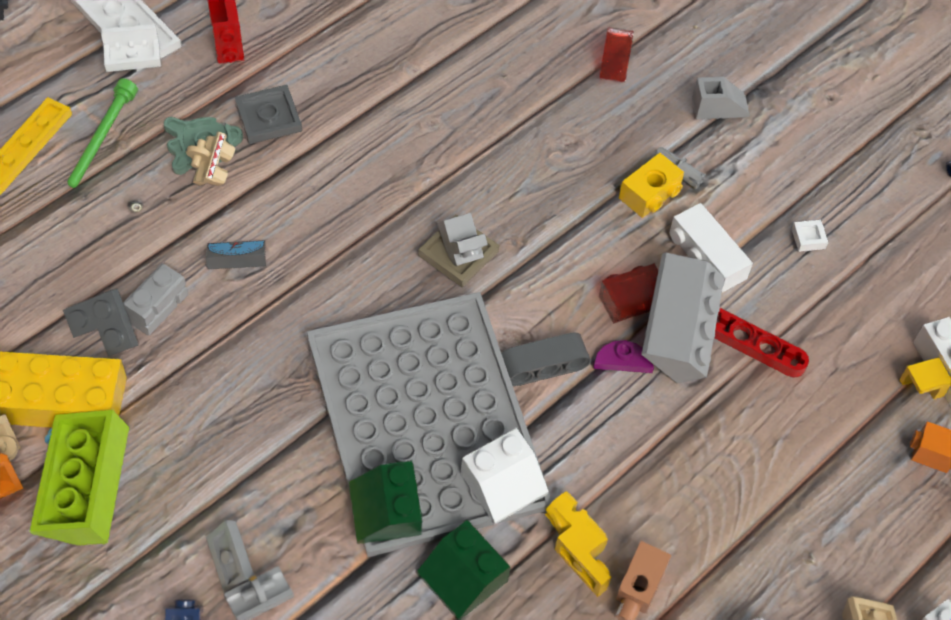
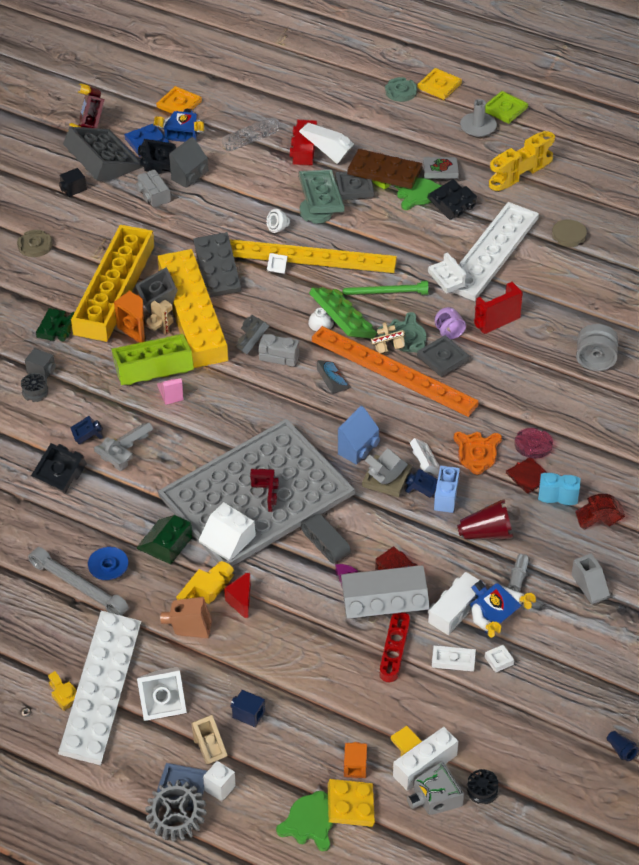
camera: 75 degrees right, 10 degrees down
(117, 231) = (320, 318): none -> white brick
(126, 195) = (343, 312): none -> bright green plate
(152, 471) = (171, 390): none -> bright pink slope
(214, 79) = (449, 318): none -> lavender helmet
(261, 179) = (395, 371): none -> orange plate
(381, 258) = (357, 436): none -> medium blue slope
(386, 503) = (188, 487): dark green slope -> none
(433, 196) = (425, 456): none -> white plate
(438, 386) = (266, 479): none -> dark red bracket
(453, 139) = (477, 452): none -> orange tile
(467, 77) = (533, 443): none -> clear pink tile
(491, 214) = (421, 482): none -> dark blue bracket
(516, 102) = (526, 474): none -> clear red piece
(517, 190) = (446, 489): none -> light blue slope
(562, 77) = (559, 488): none -> medium azure brick
(596, 164) = (487, 523): none -> dark red cone
(612, 498) = (238, 594): none -> red slope
(651, 185) = (492, 559): yellow brick -> none
(739, 209) = (496, 605): none -> torso
(796, 283) = (453, 658): none -> white plate
(820, 552) = (248, 708): none -> dark blue brick

